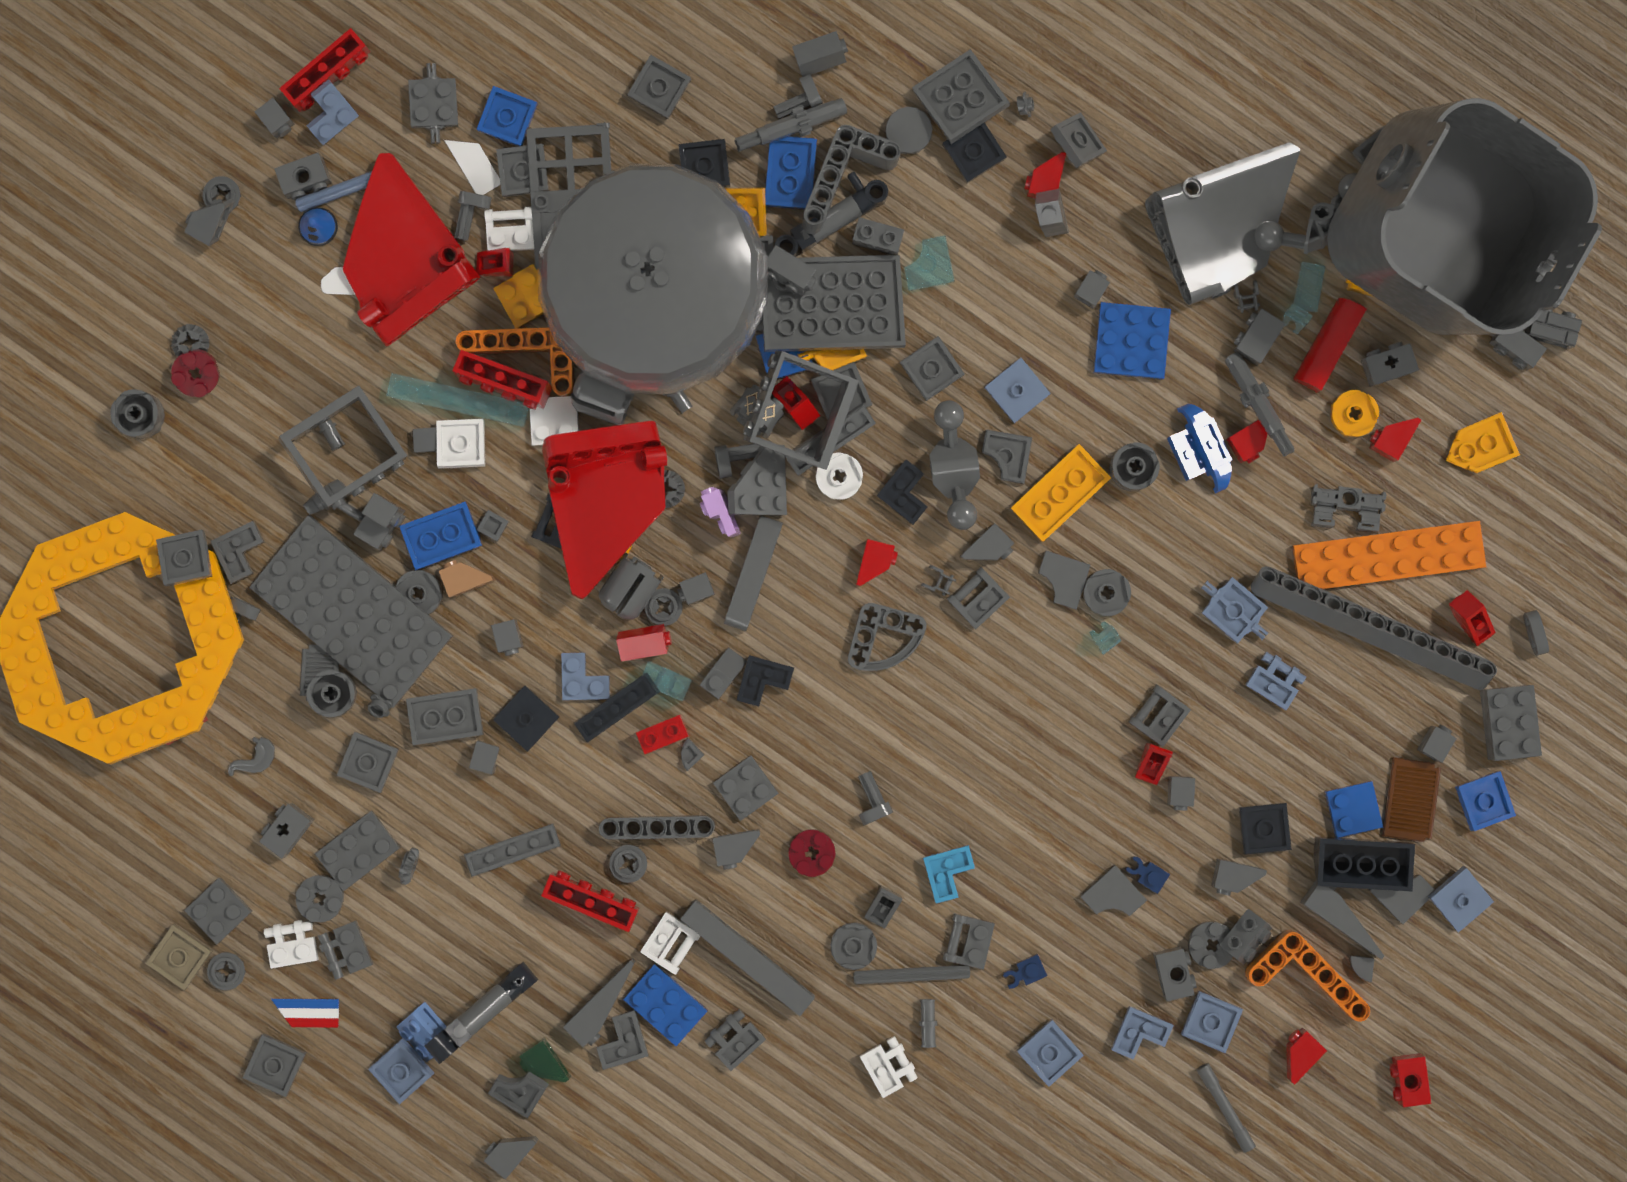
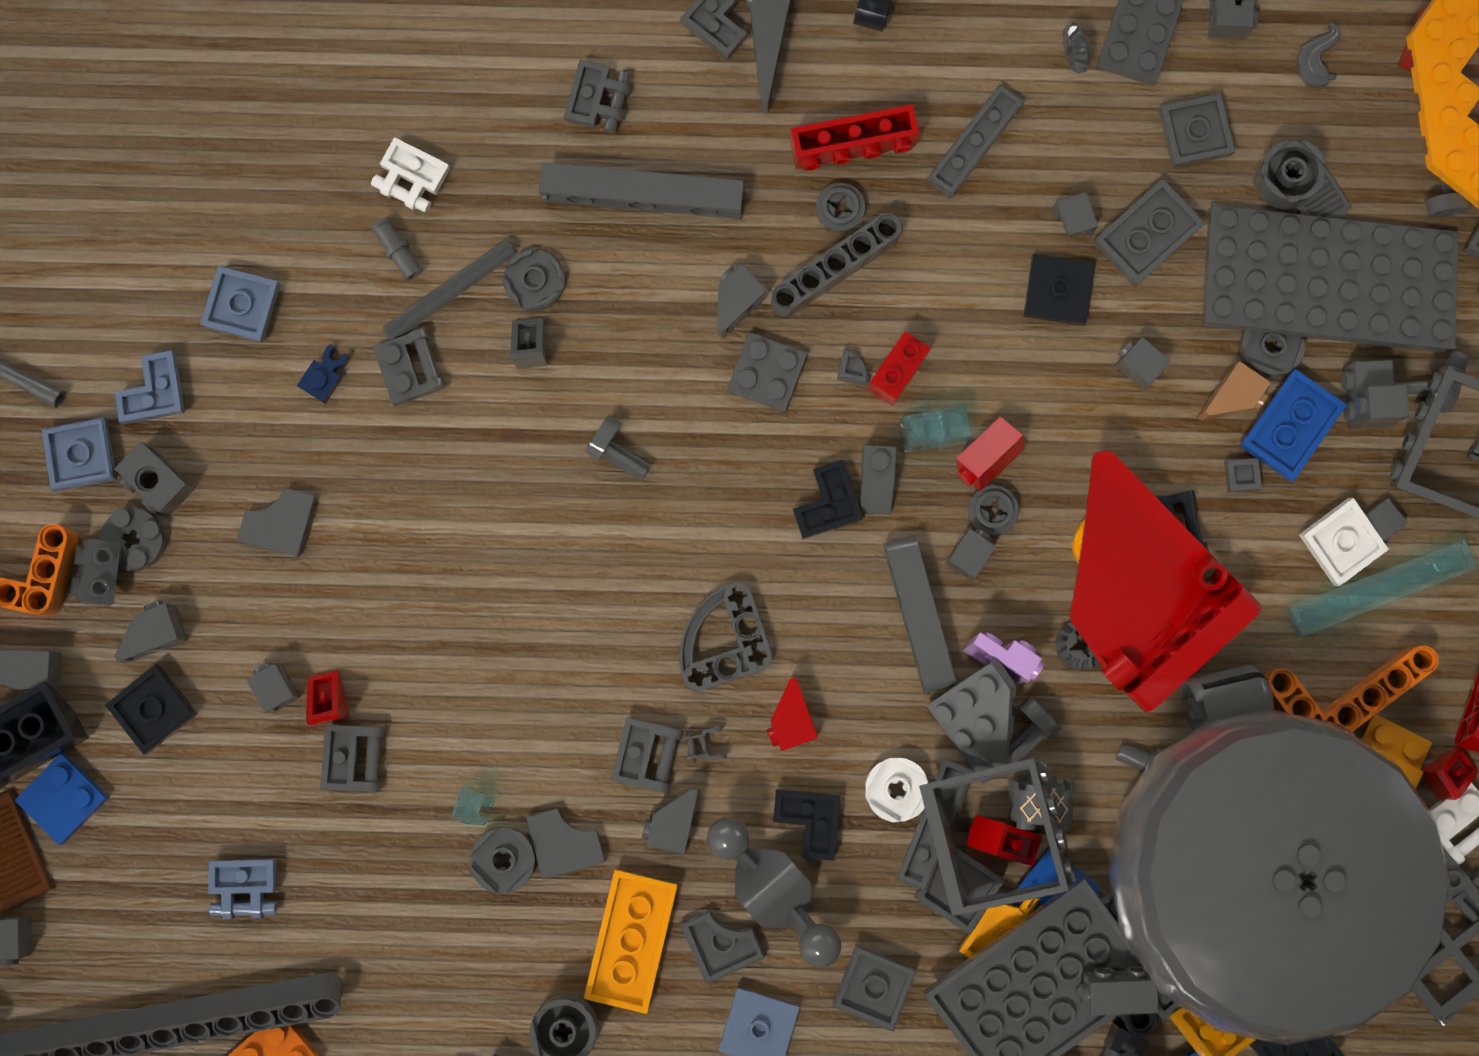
camera: 145 degrees right, 5 degrees down
(379, 706) = (1227, 196): dark grey plate -> none
(502, 379) = (1353, 643): red brick -> none
(556, 418) = (1265, 639): white plate -> none
(576, 683) = (1029, 363): sand blue plate -> none
(617, 707) = (969, 364): black tile -> none
(629, 587) = (1032, 505): dark grey cylinder -> none
(663, 939) = (747, 150): white plate -> none
(665, 1004) = (697, 86): blue plate -> none
(823, 860) = (647, 367): dark red plate -> none
(941, 868) = (490, 428): dark azure plate -> none
(1150, 876) = (249, 571): dark blue plate -> none
(1234, 610) = (341, 938): sand blue plate -> none

